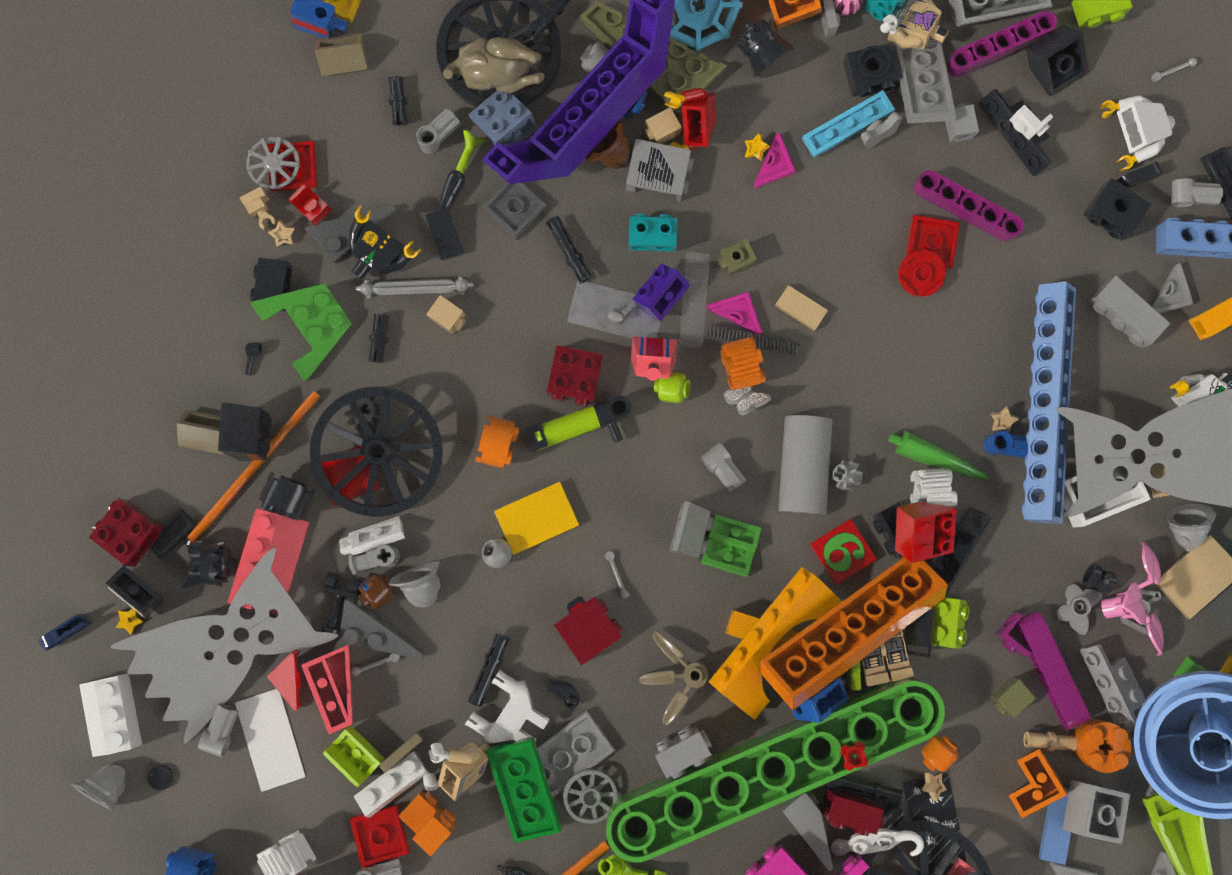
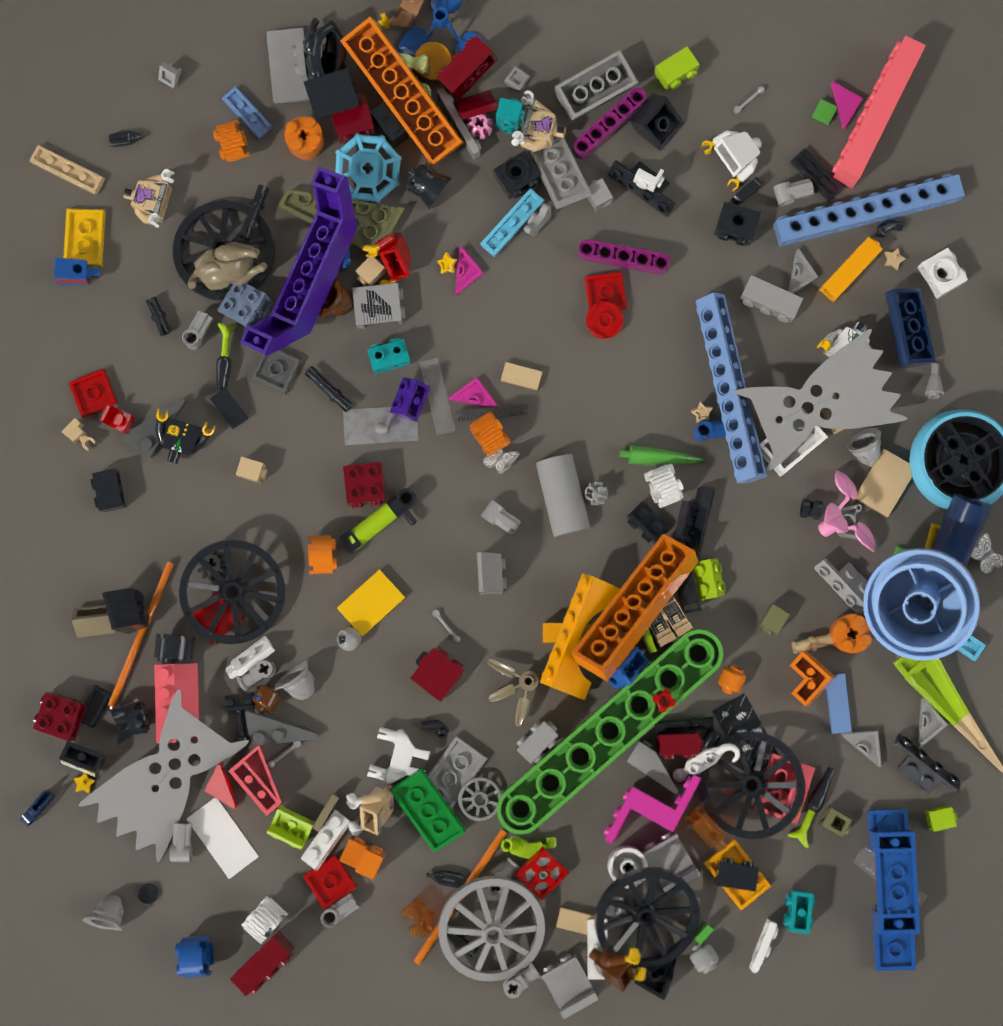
camera: 15 degrees left, 0 degrees up
(110, 715) = (93, 858): white slope -> none
(251, 350) = (109, 546): black hand -> none
(272, 162) = (77, 396): light grey wheel -> none
(282, 233) = (103, 448): tan piece -> none
(315, 315) = (152, 505): bright green wing -> none
(341, 54) = (102, 294): dark tan brick -> none
(378, 338) = (204, 505): black pin -> none
(414, 286) = (219, 456): light grey wheel -> none
(487, 673) = (372, 729): black pin -> none
(592, 56) = (299, 233): light grey head -> none
(653, 357) = (420, 450): coral torso -> none
(674, 388) = (442, 469): lime head -> none
(731, 545) = (526, 575): bright green slope -> none
(733, 266) = (458, 361): olive brick -> none
(842, 551) = (612, 552): red tile -> none
(925, 531) = (665, 516): red slope -> none
(934, 785) = (735, 705): tan piece -> none
(1009, 643) = (759, 580): magenta bracket -> none
(1052, 671) = (796, 589): magenta beam -> none
(1078, 607) = (802, 535): light grey animal -> none
(1096, 812) = (860, 684): light grey brick -> none

